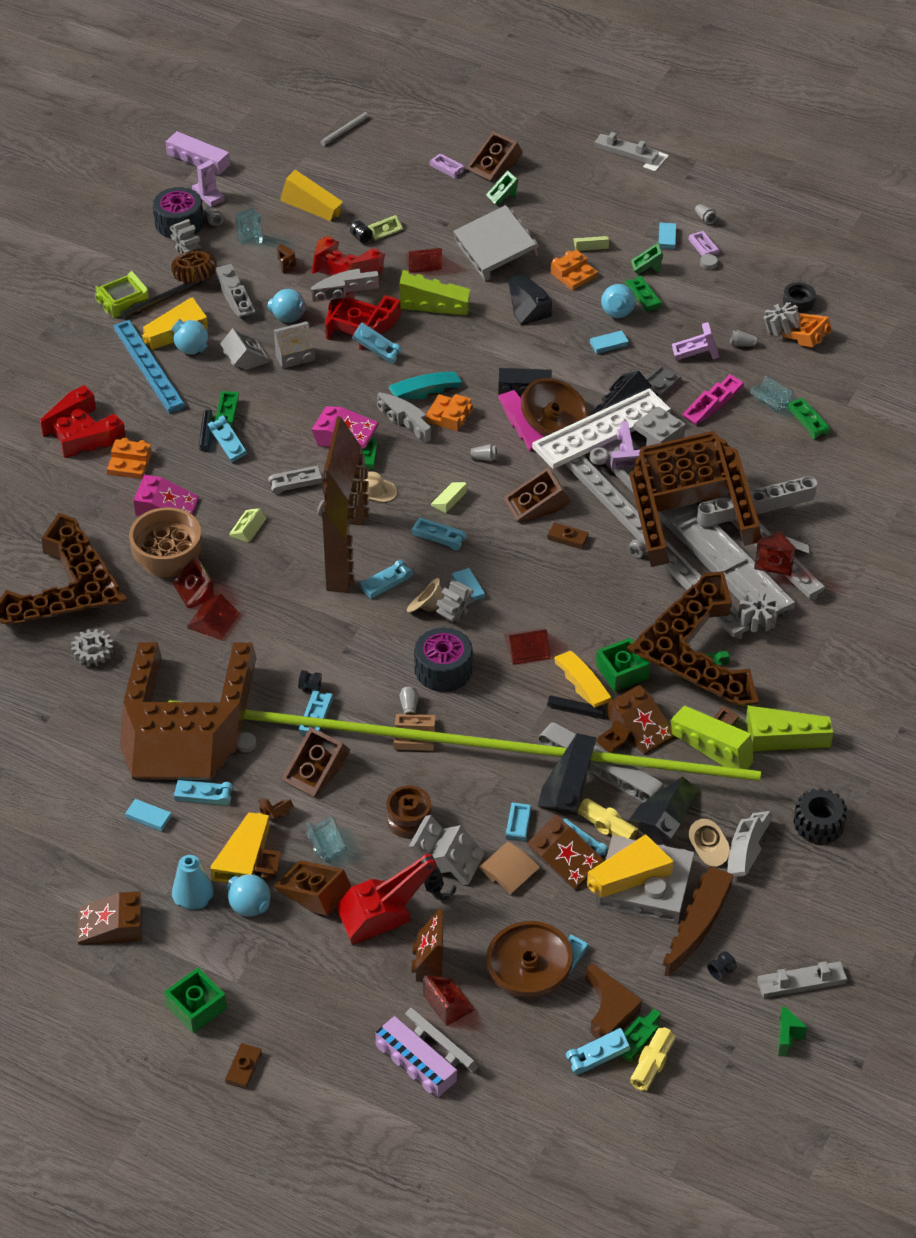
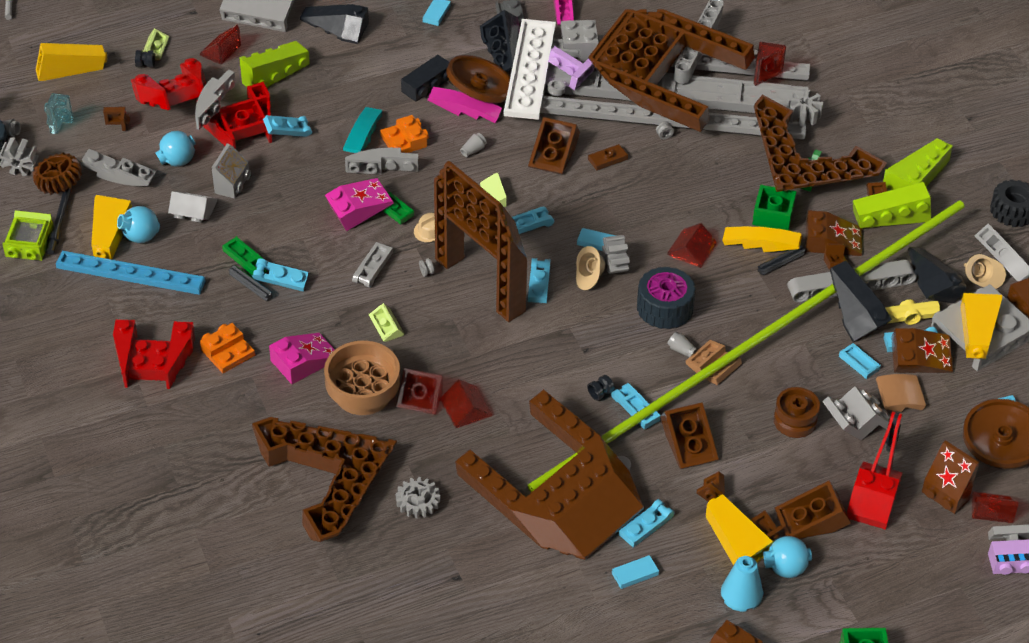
camera: 50 degrees left, 0 degrees up
(327, 839) = (773, 476): clear light blue bracket -> none

